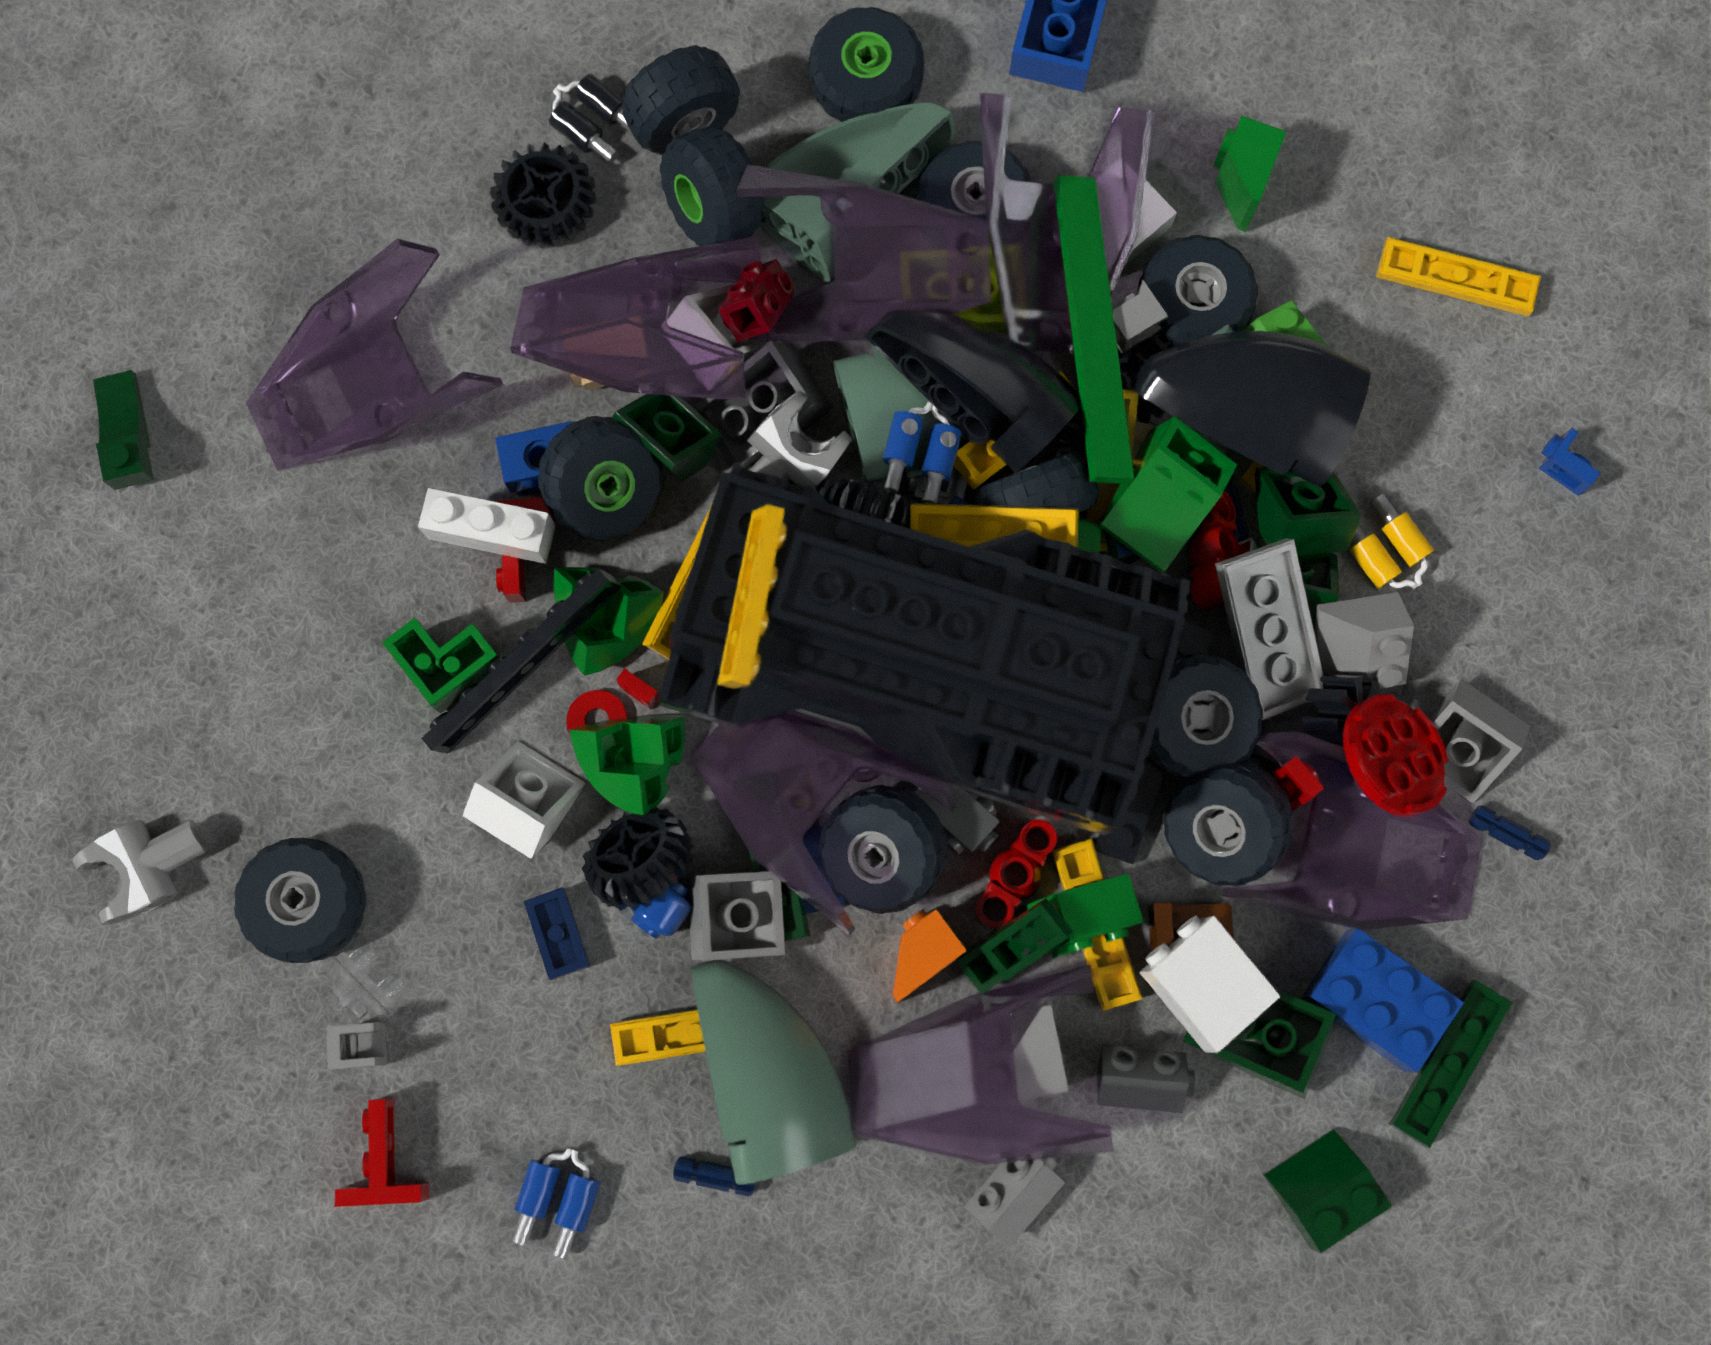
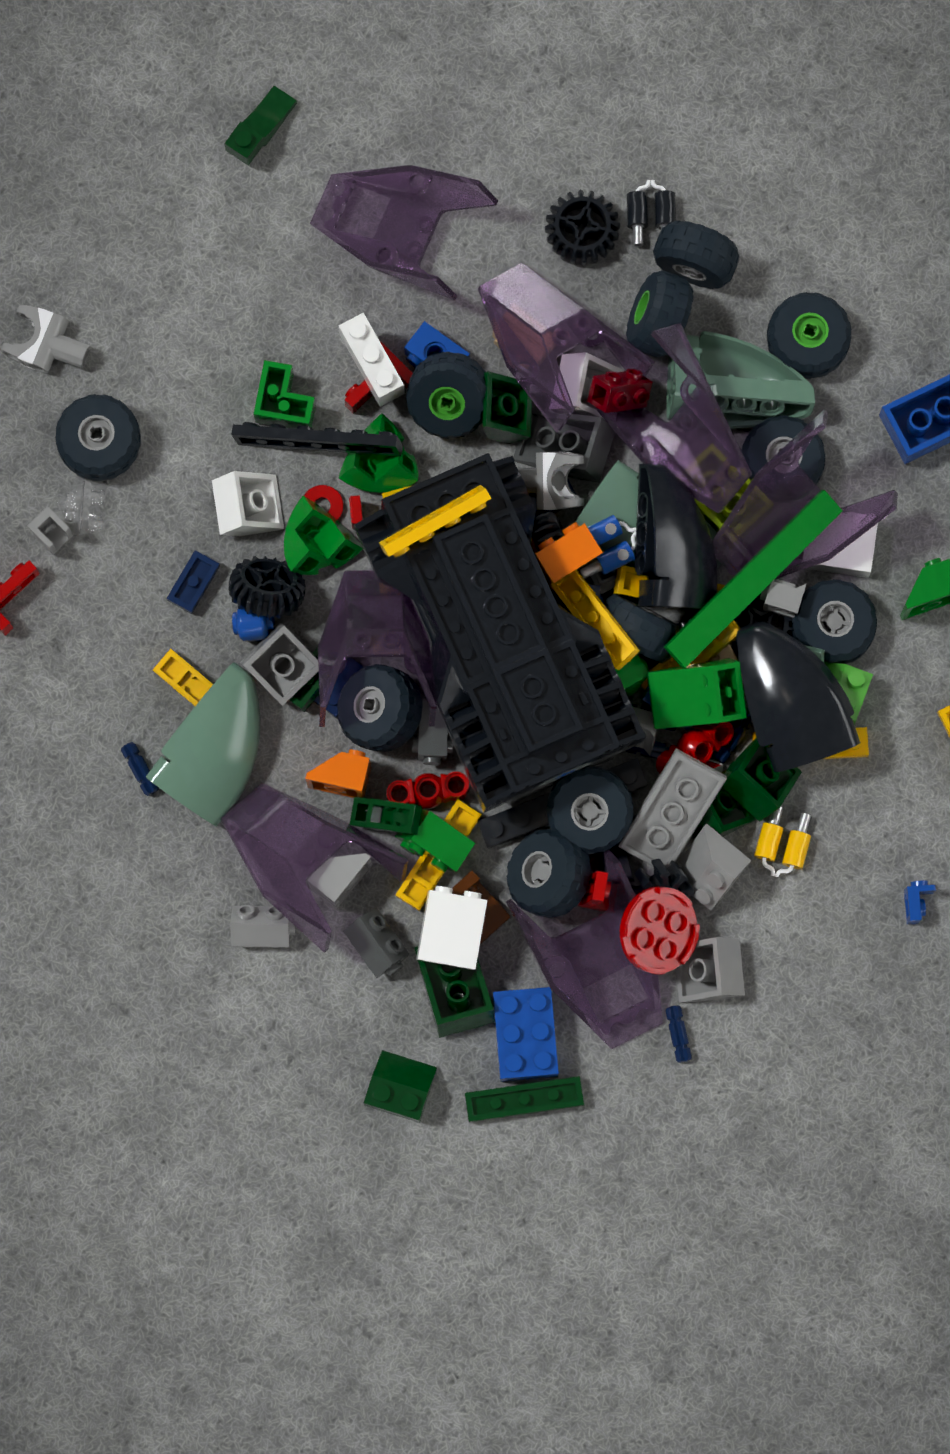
camera: 50 degrees right, 0 degrees up
(537, 1193) = (55, 686): blue piece -> none
(900, 486) = (568, 552): none -> orange brick

